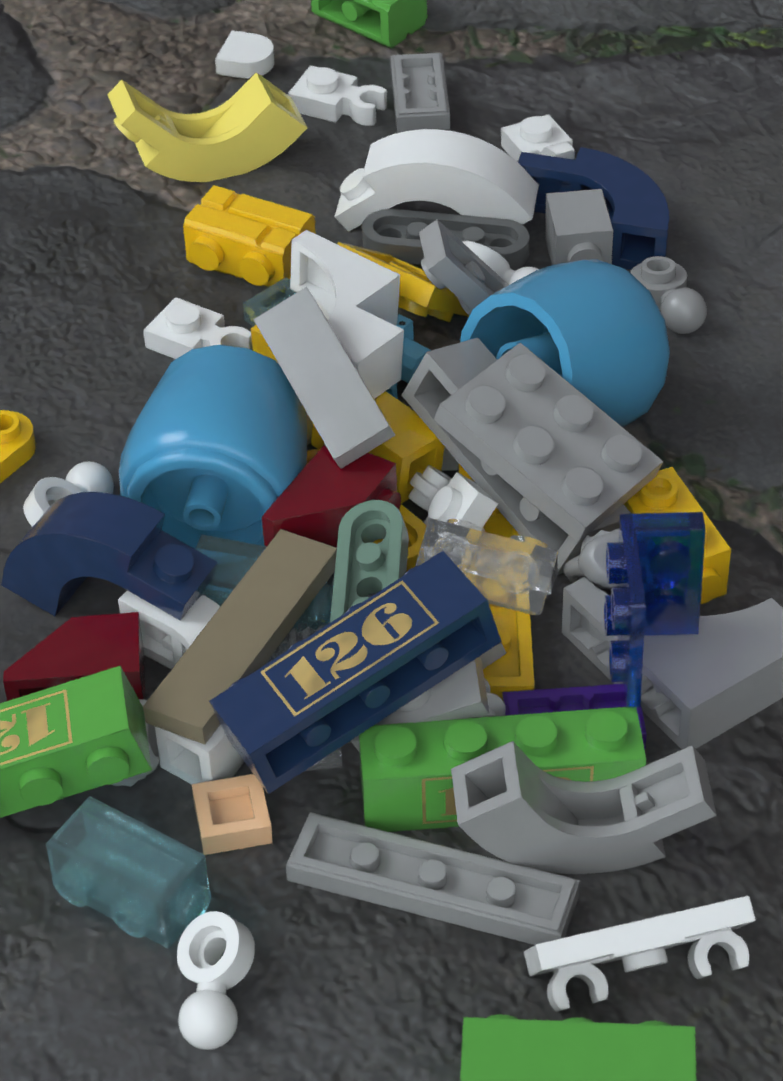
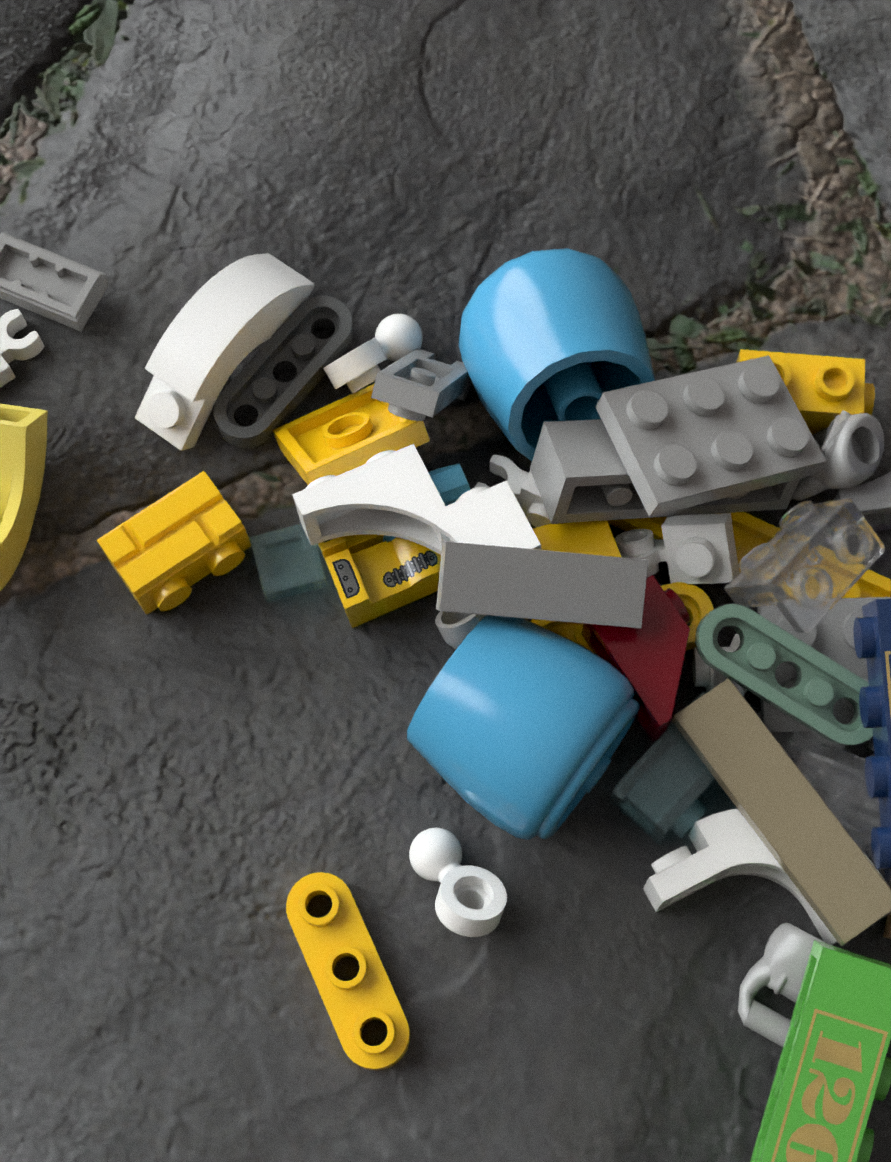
camera: 60 degrees left, 25 degrees up
(78, 650) = (707, 965): dark red slope -> none
(110, 541) = (609, 892): dark blue arch -> none
(188, 327) = (267, 662): white plate -> none
(537, 136) = (191, 220): white plate -> none
(578, 227) = (356, 257): light grey brick -> none
(632, 199) = (334, 199): dark blue arch -> none
(667, 281) = (505, 230): light grey plate -> none

